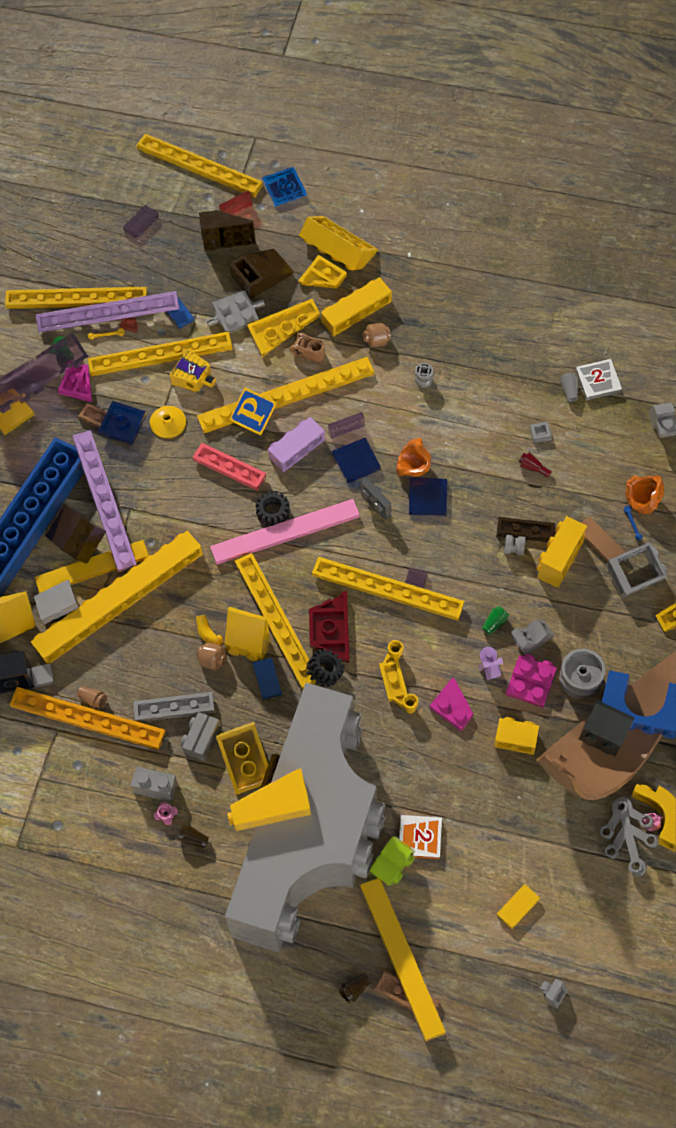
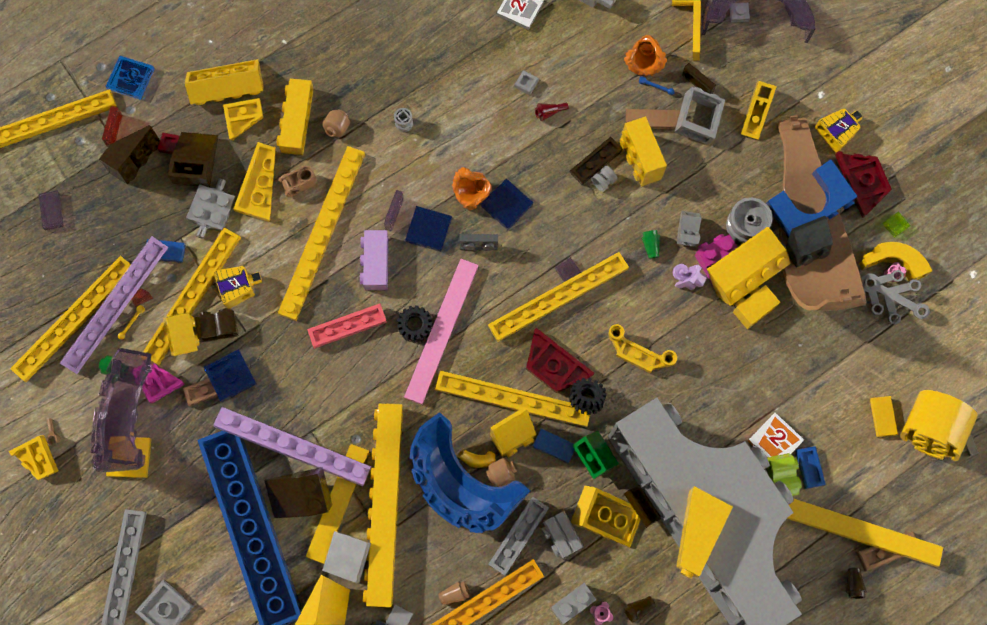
camera: 55 degrees left, 10 degrees up
(123, 367) = (181, 334): none -> yellow brick
(151, 386) = (216, 325): none -> dark brown brick
(168, 428) = (266, 345): yellow dish -> none
(169, 629) = (452, 489): none -> blue windscreen
(252, 411) = (317, 268): piece -> none
(258, 245) = (168, 143): none -> dark red tile
(282, 708) = (595, 454): none -> green brick
(421, 881) = (810, 467): none -> blue tile
(452, 705) = (692, 330): dark pink wing -> none
(541, 700) = (748, 266): none -> yellow slope
(543, 946) = (939, 425): none -> yellow brick
(570, 386) = (509, 30): light grey cone -> none
(667, 546) = (698, 79): none -> dark brown tile

